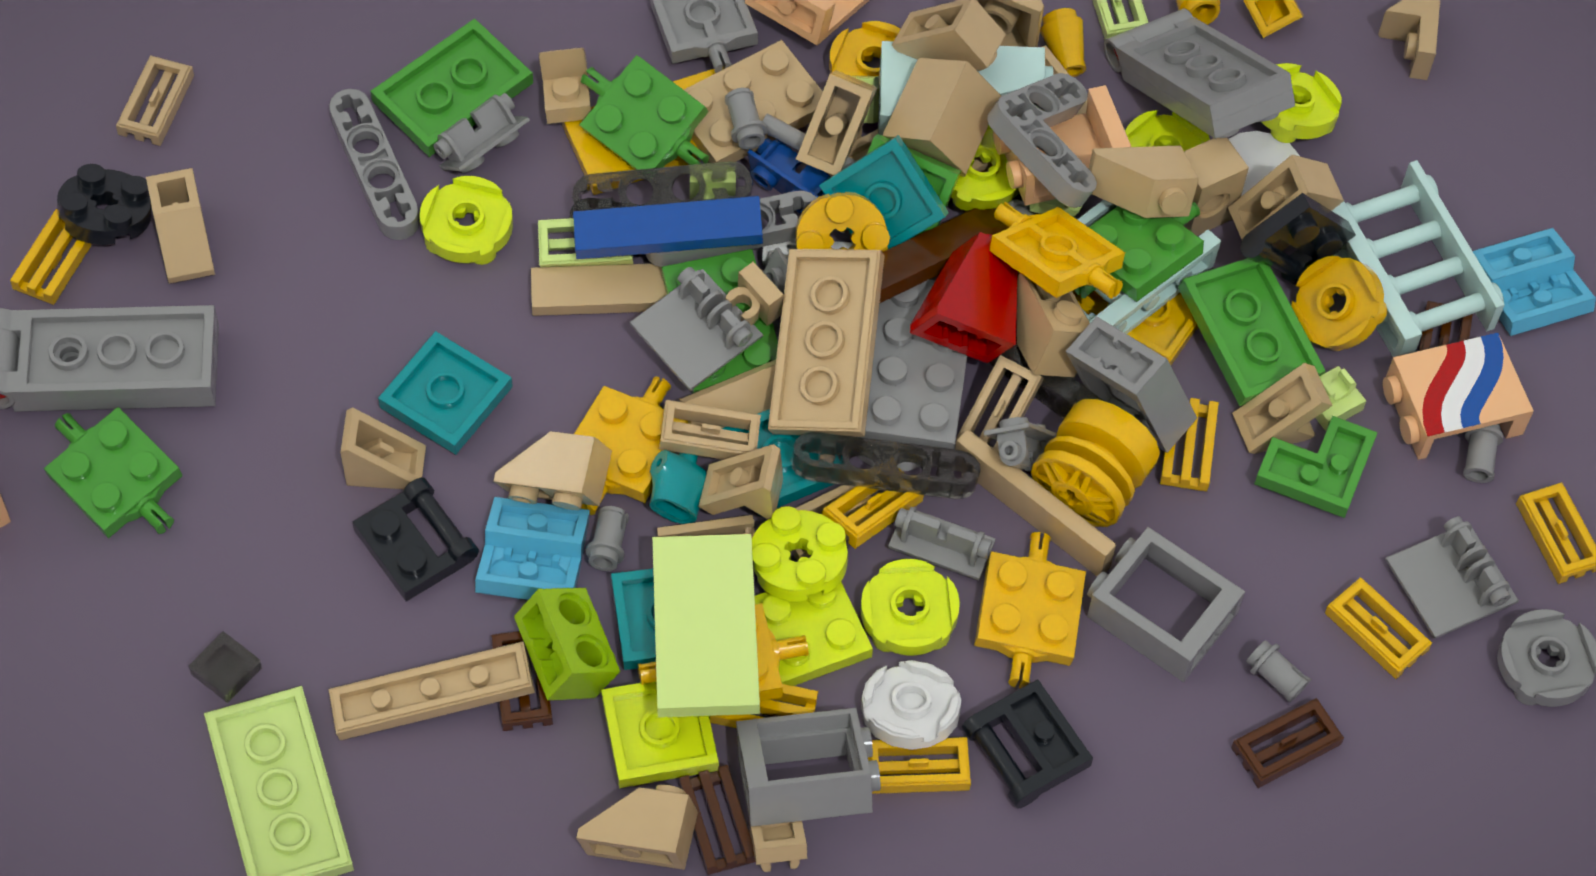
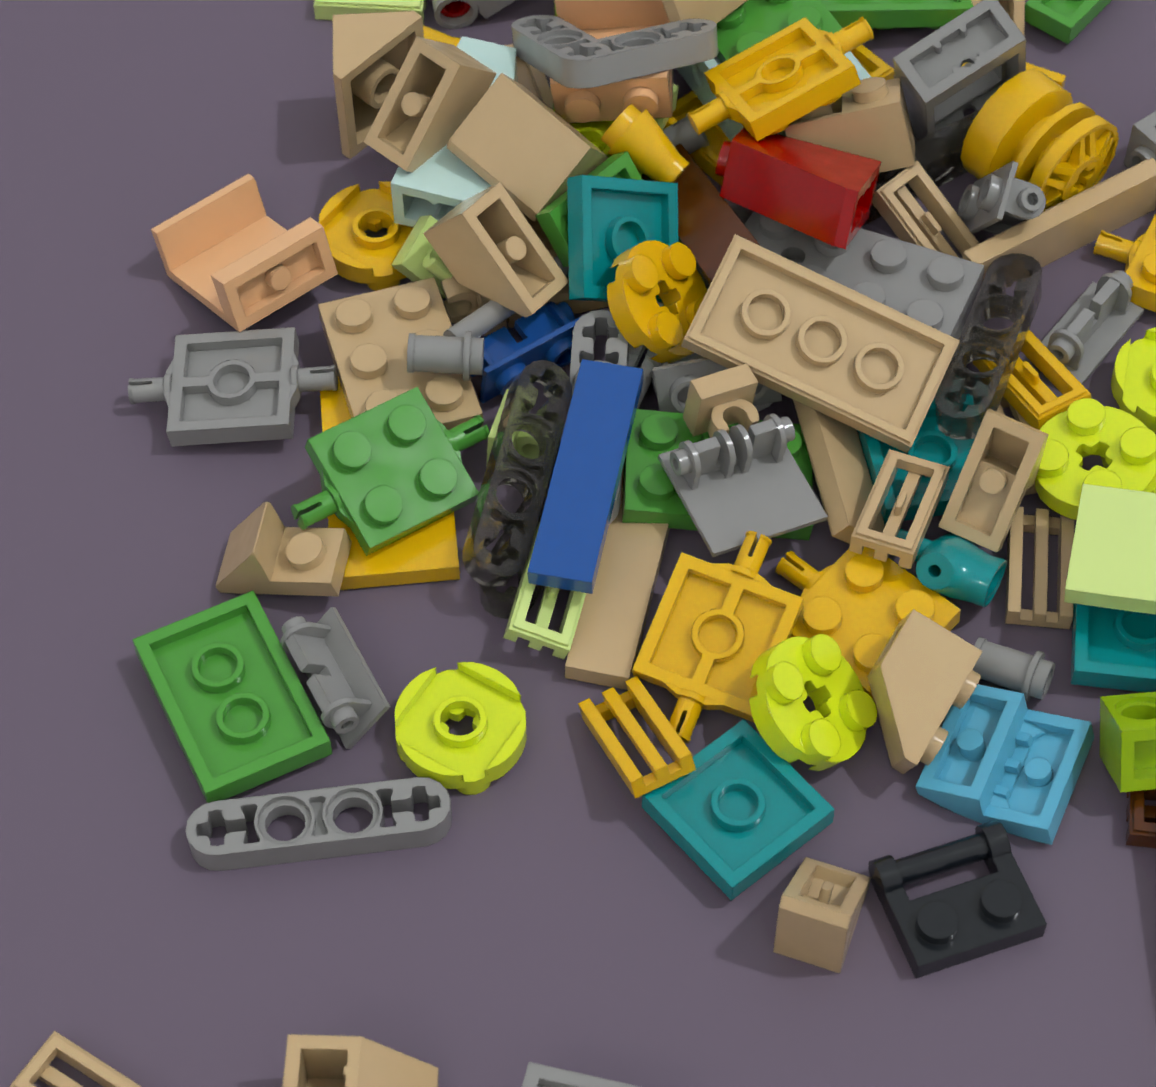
camera: 70 degrees left, 5 degrees down
(475, 314) = (619, 707): none -> yellow tile
(526, 384) = (842, 707): none -> neon yellow plate
(572, 347) = (713, 631): none -> yellow plate
(980, 189) = (646, 145): none -> yellow cone

